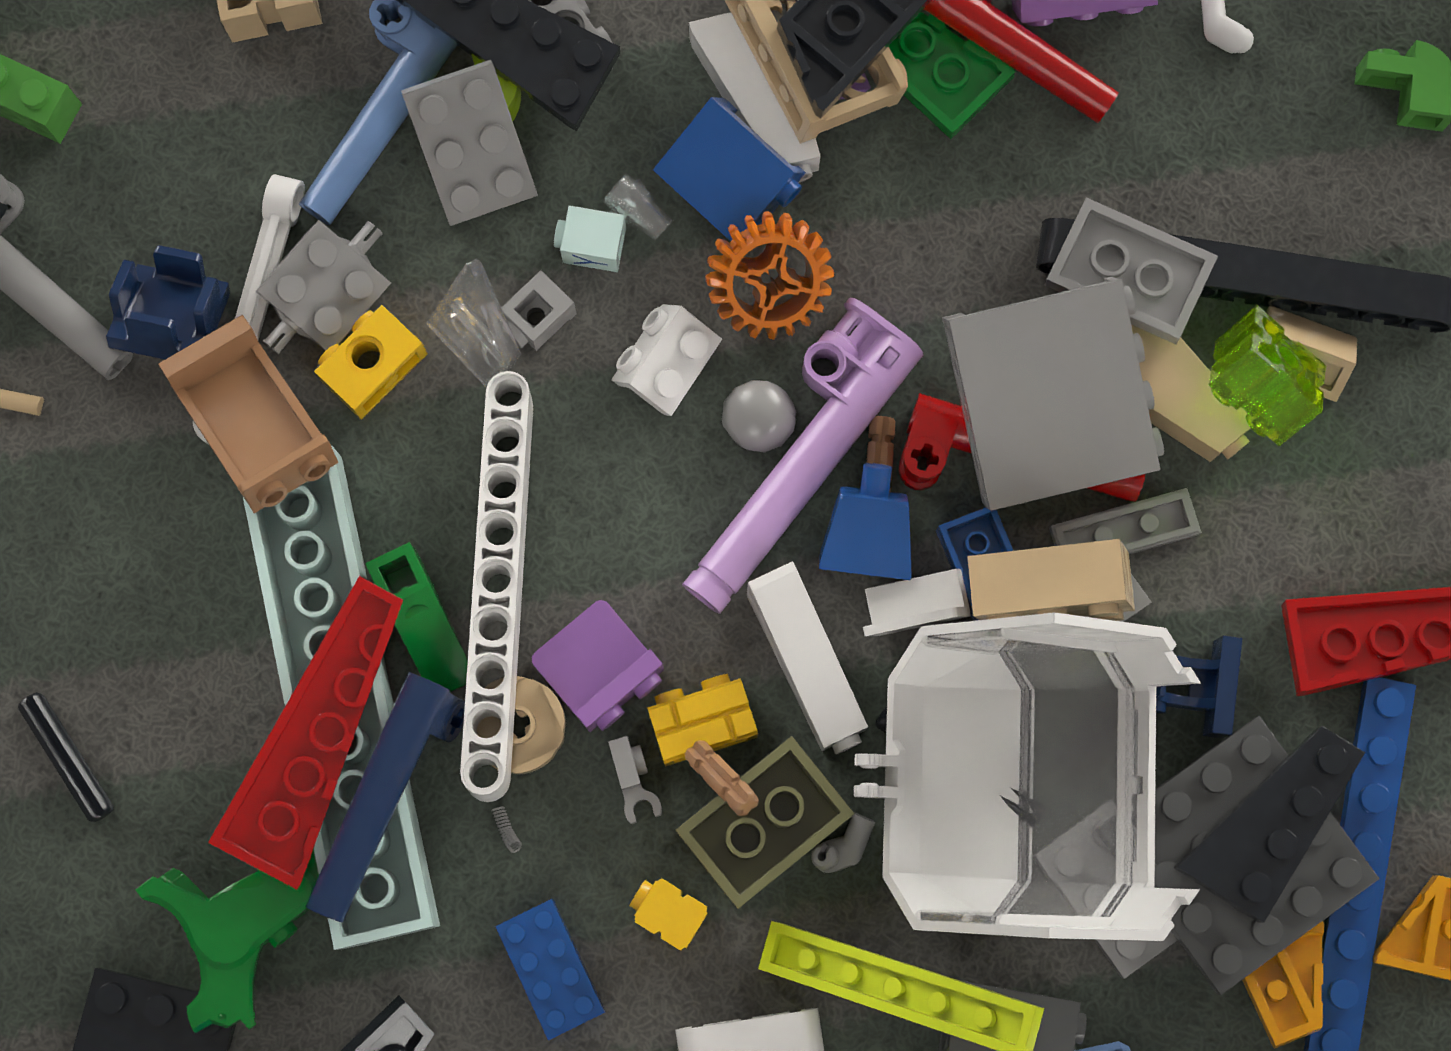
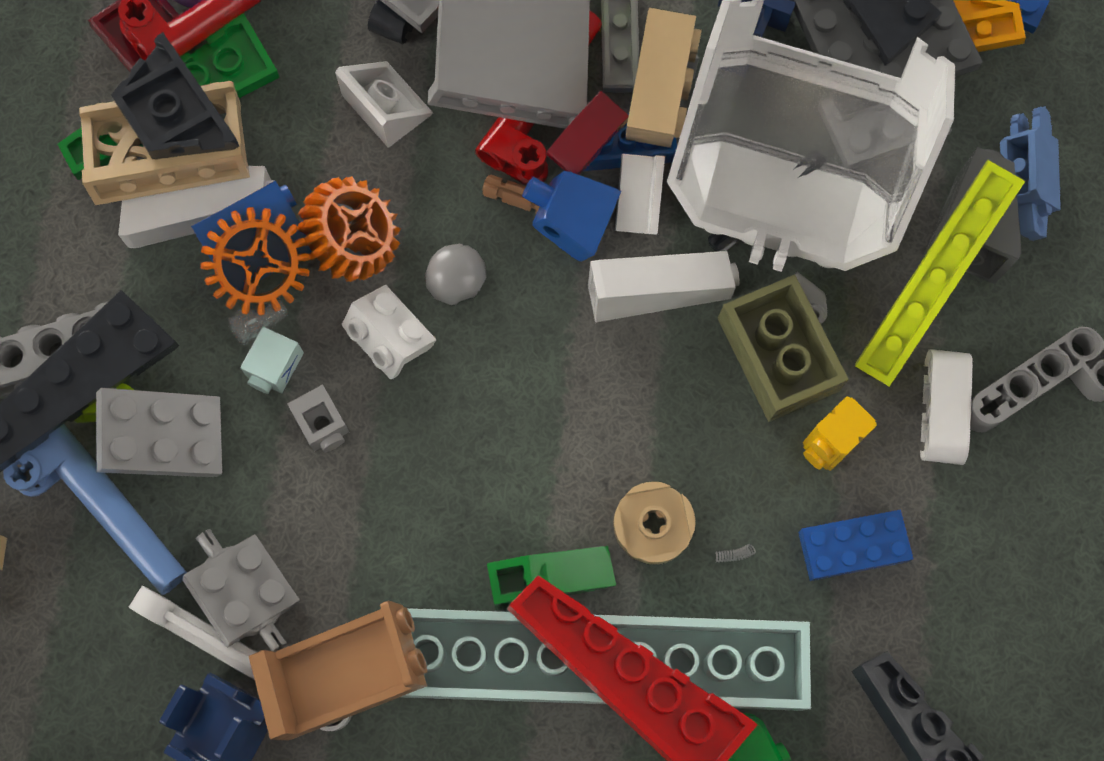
camera: 75 degrees left, 5 degrees down
(365, 388) = (311, 542): yellow brick -> none
(417, 712) = (636, 589): dark blue axle -> none
(475, 325) = (316, 470): clear wing -> none
(501, 606) = (522, 490): white beam -> none
(598, 666) = (625, 445): medium lavender bracket -> none
(629, 765) = (711, 442): light grey plate -> none
(687, 164) = (289, 268): none -> orange gear
(714, 715) = (687, 376): yellow brick -> none
(721, 778) = (745, 363): medium nougat axle -> none
(868, 372) = (440, 180): lavender piece -> none
(955, 265) = (382, 99): none -> white slope
(964, 517) = (587, 134): none -> dark red slope

